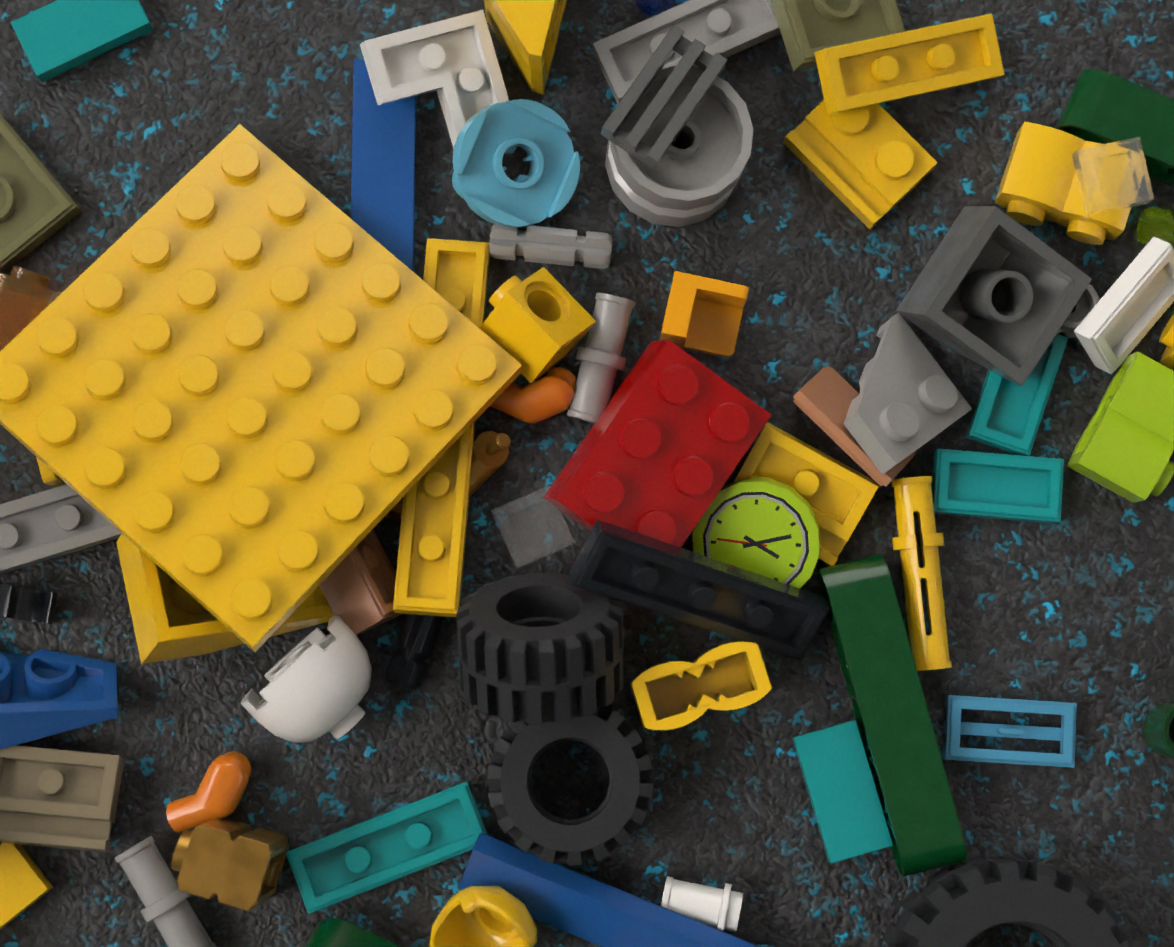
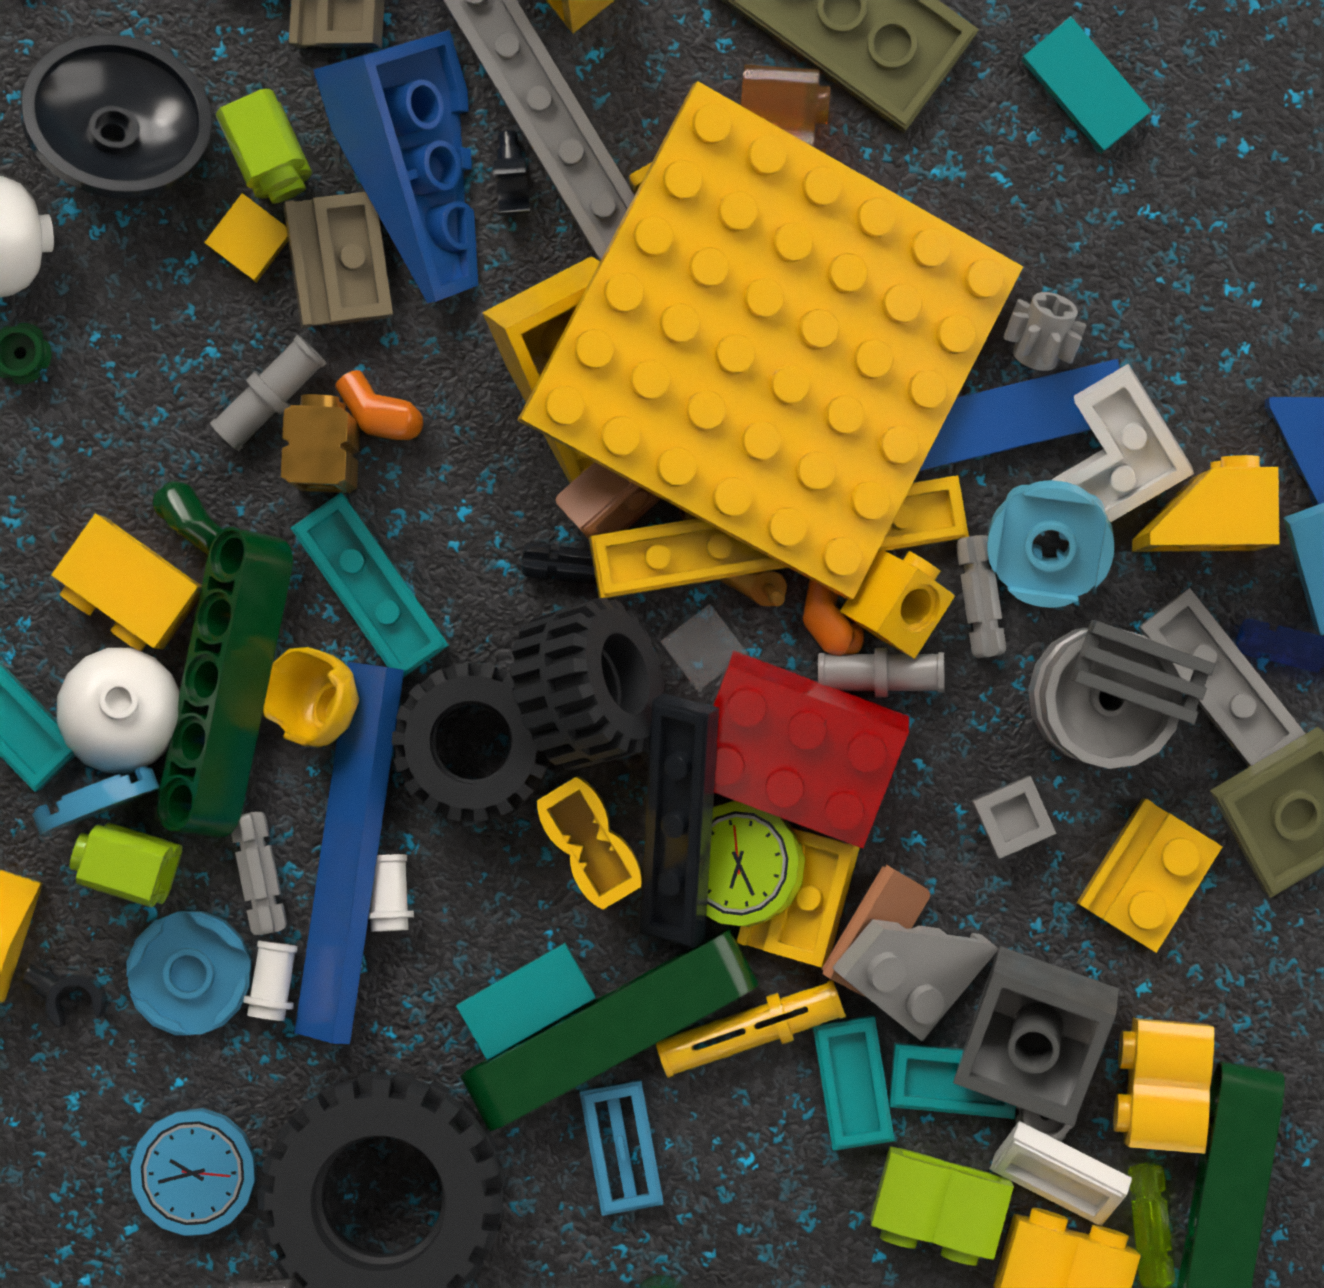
camera: 80 degrees right, 5 degrees up
(308, 119) = (1044, 331): none -> light grey gear
(314, 686) = (501, 480): white cylinder -> none
(704, 314) = (948, 760): light orange panel -> none
(774, 266) = (1013, 817): none -> light grey plate
(909, 63) = (1245, 902): yellow plate -> none
(1112, 176) = (1177, 1123): clear tile -> none

